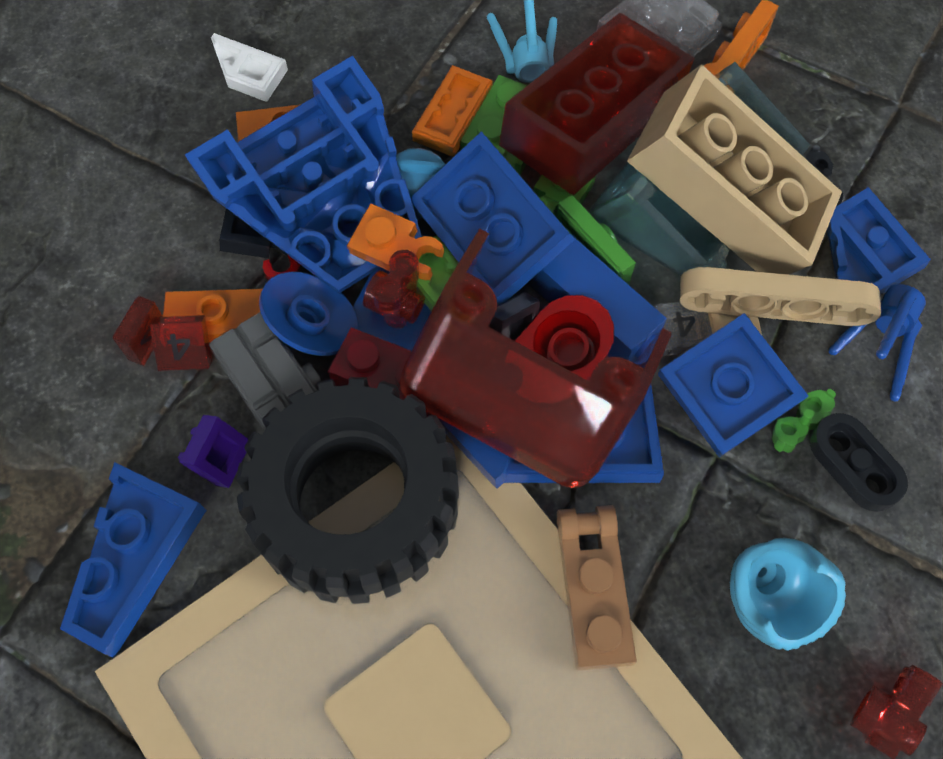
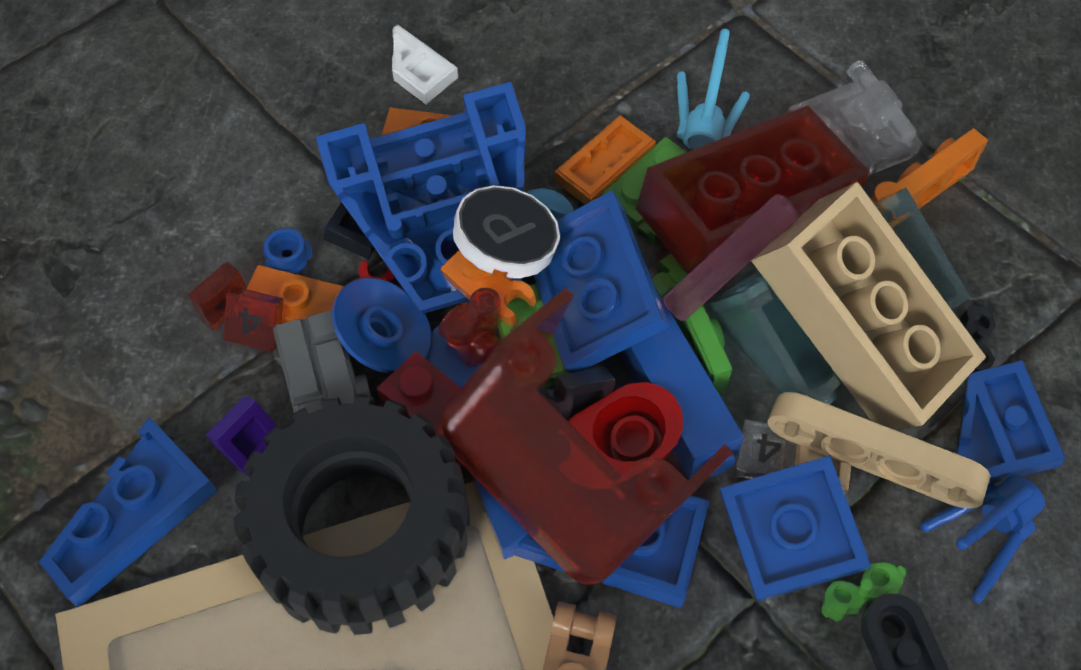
camera: 20 degrees right, 5 degrees down
(186, 262) = (283, 242): none -> blue plate
(397, 194) = (505, 231): none -> black tile
(605, 163) = (730, 257): none -> clear pink axle

